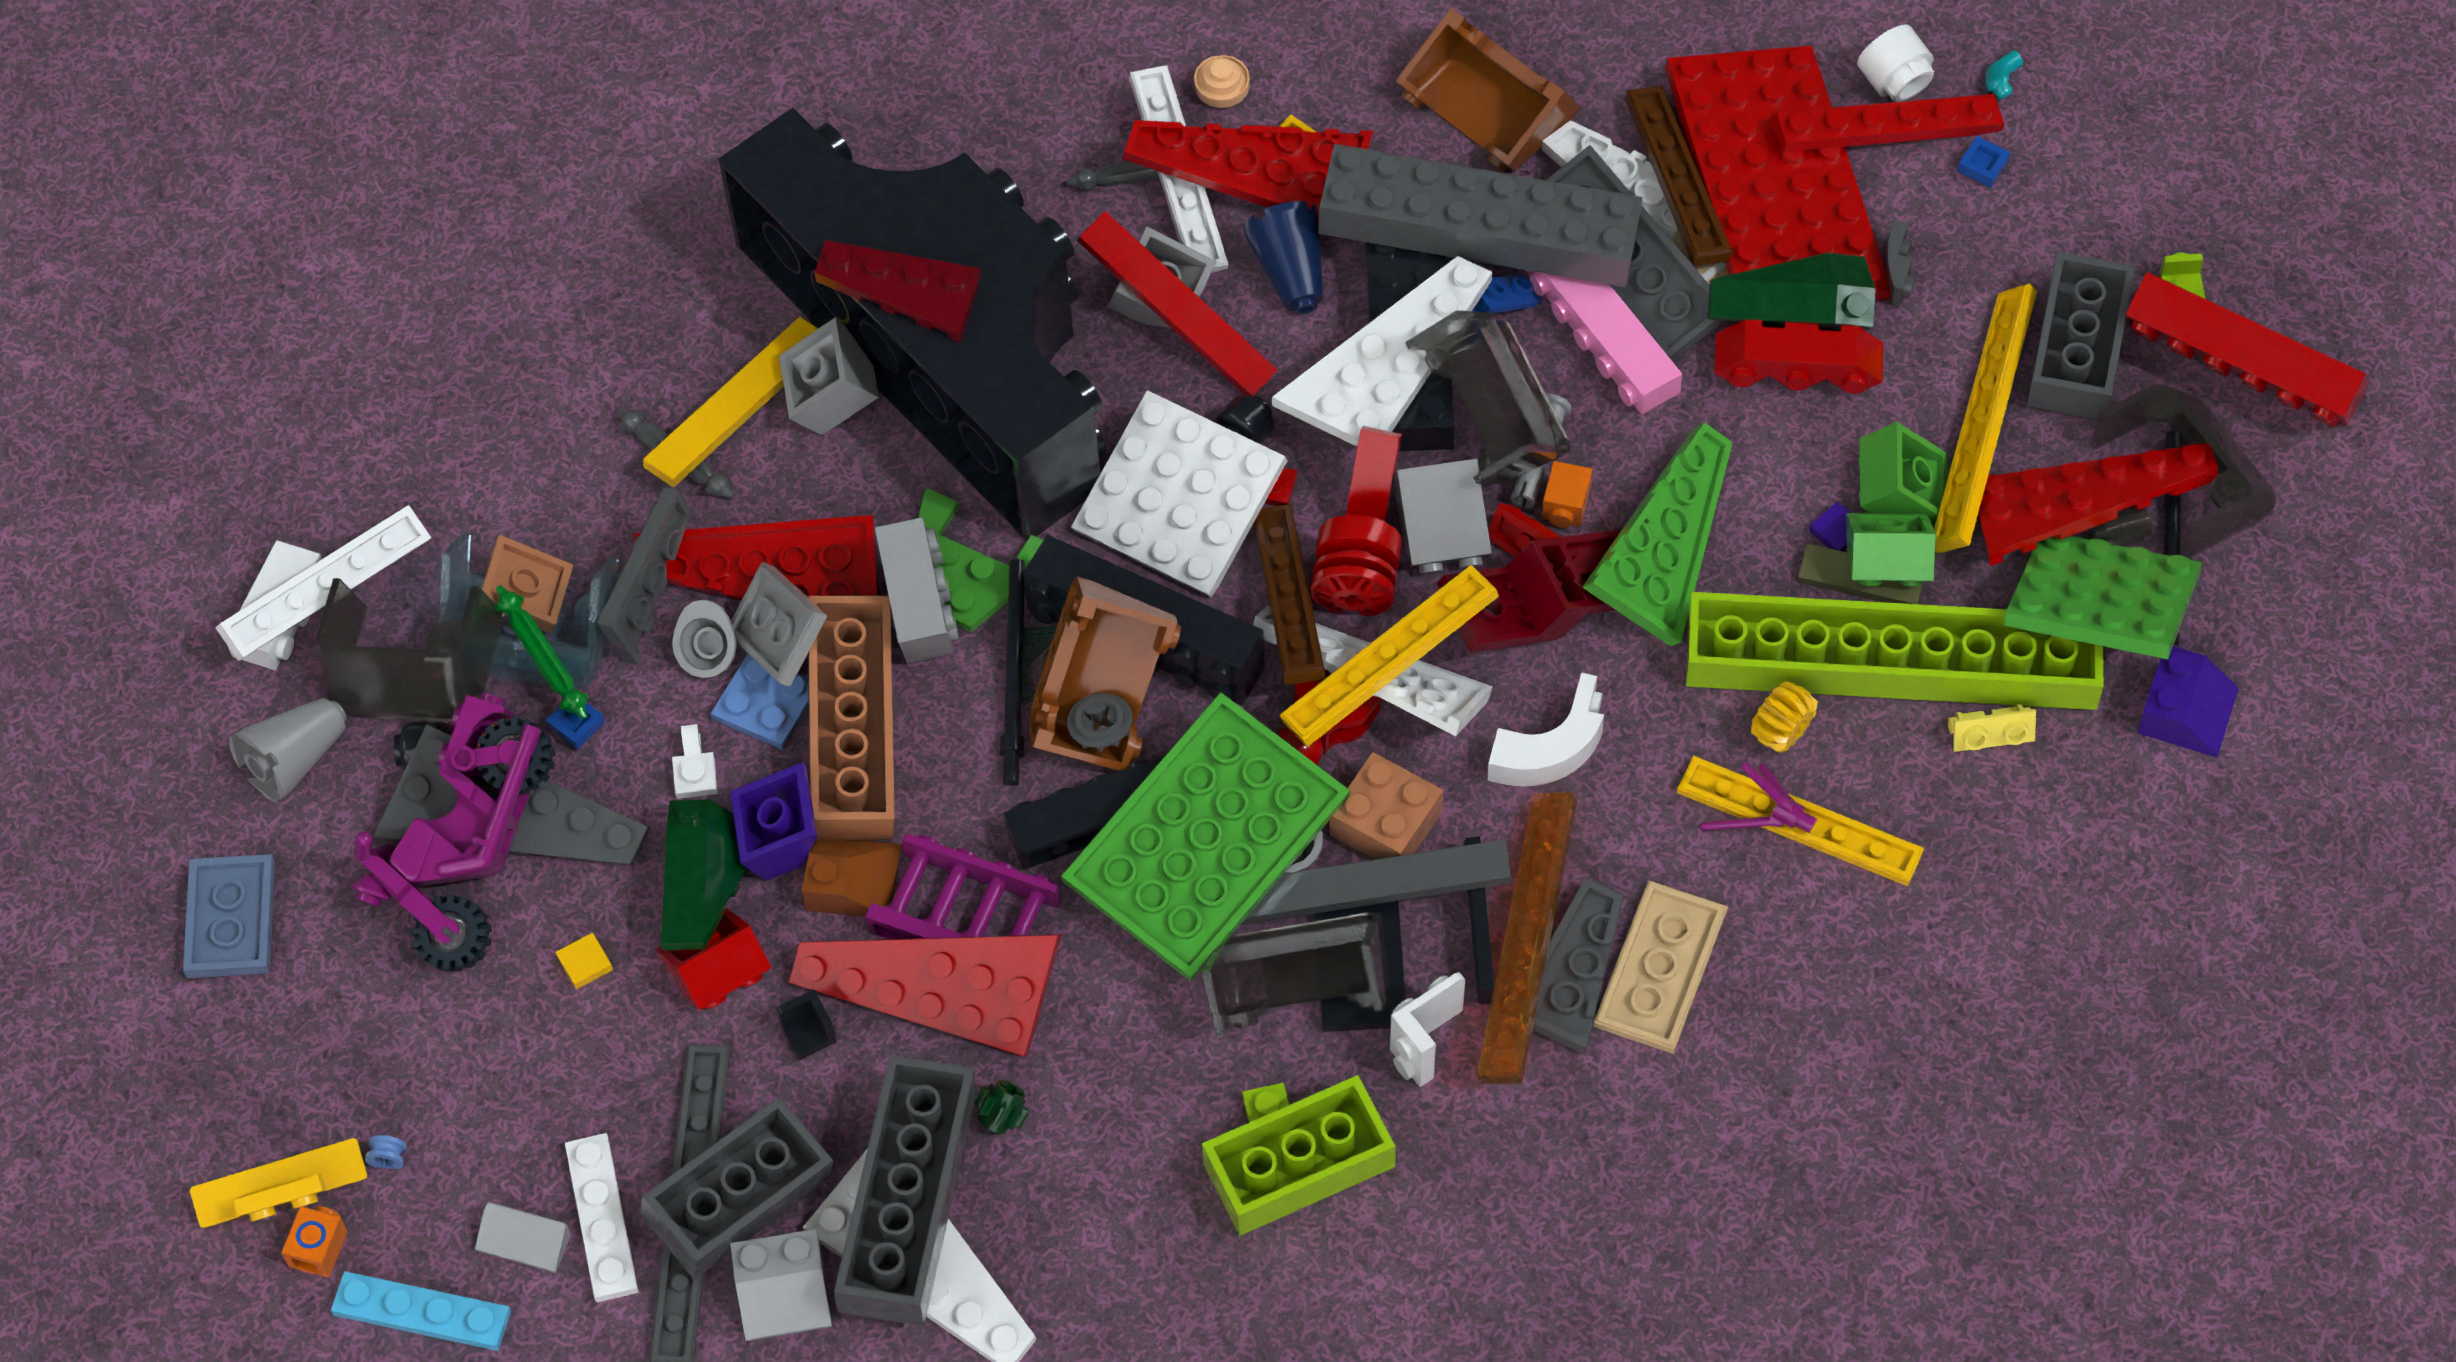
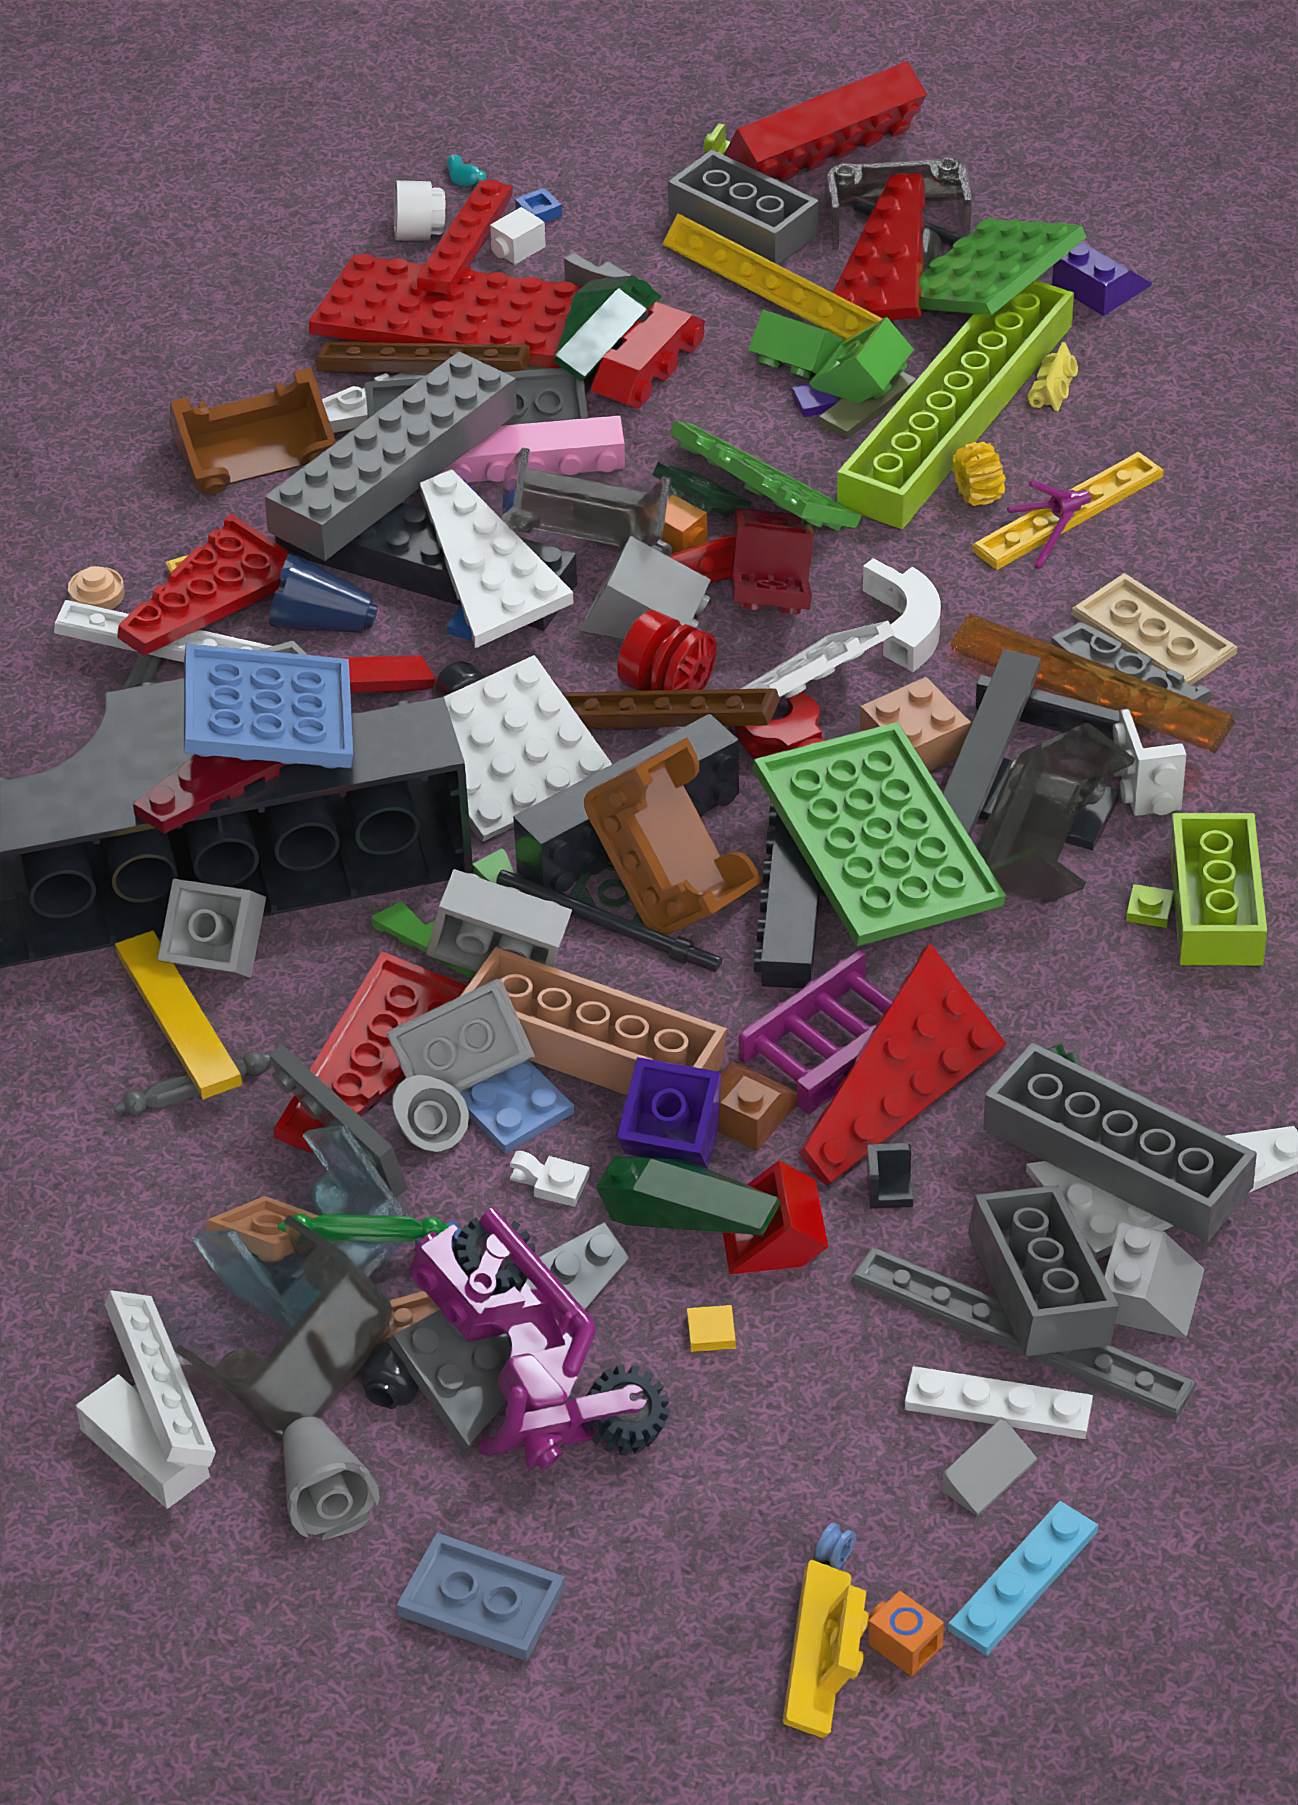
camera: 65 degrees left, 15 degrees down
(976, 277) = (267, 706): none -> medium blue plate
(1096, 708) = (714, 854): dark grey gear -> none
(1373, 473) = (594, 613): red tile -> none
(1389, 655) = (789, 648): yellow tile -> none
(1616, 482) = (704, 492): none -> clear green plate
(1920, 165) = (517, 236): none -> white brick

